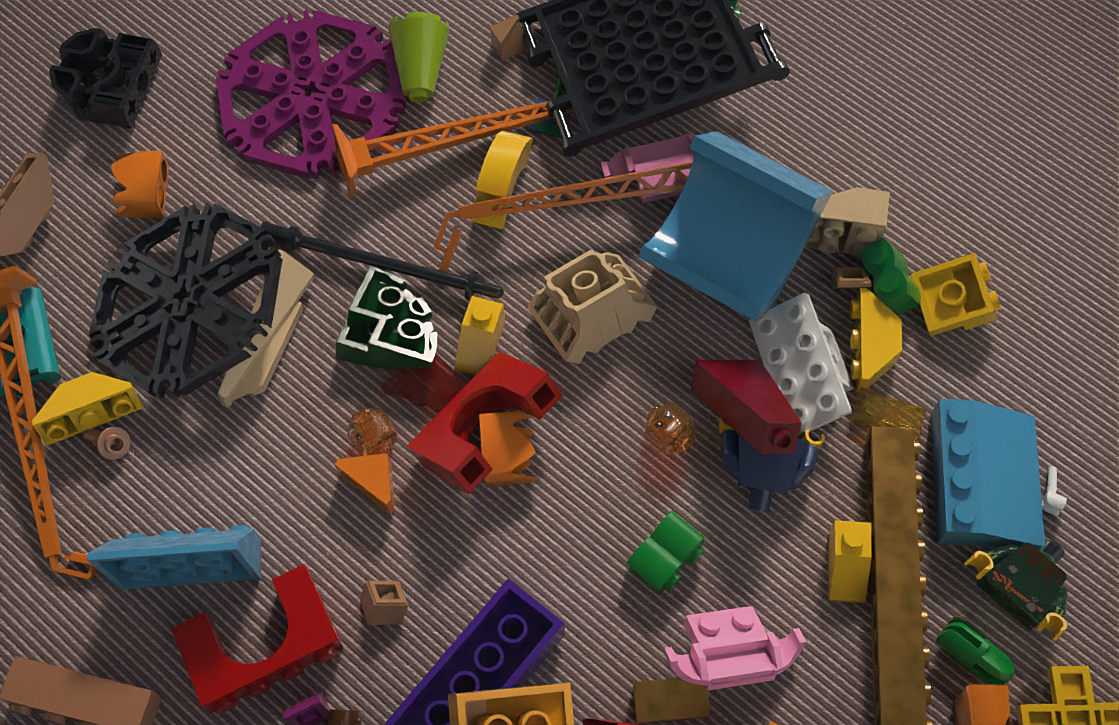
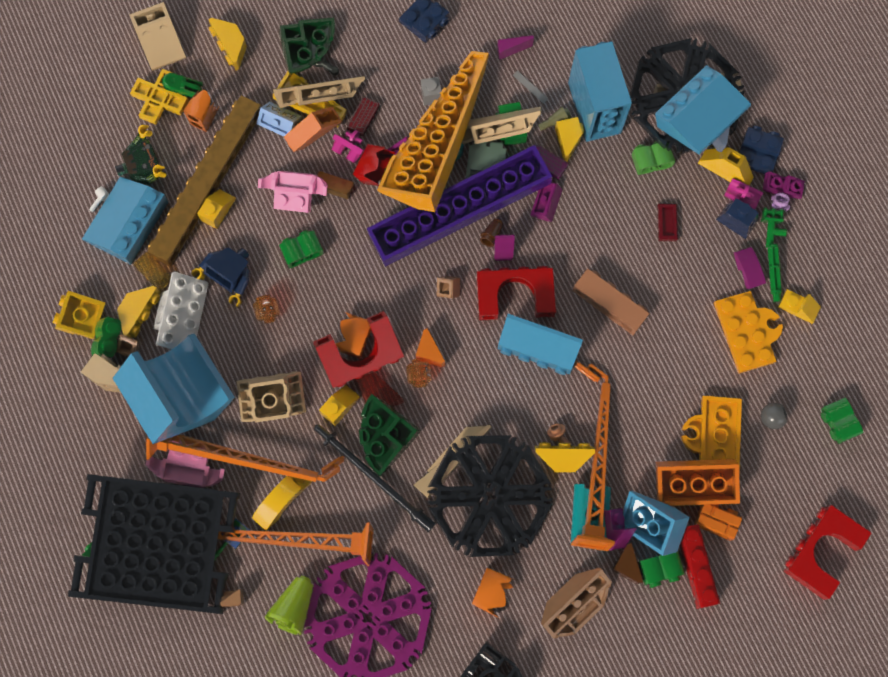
camera: 160 degrees left, 10 degrees up
(748, 402) = (220, 294): dark red slope -> none
(975, 652) = (184, 143): green arm -> none

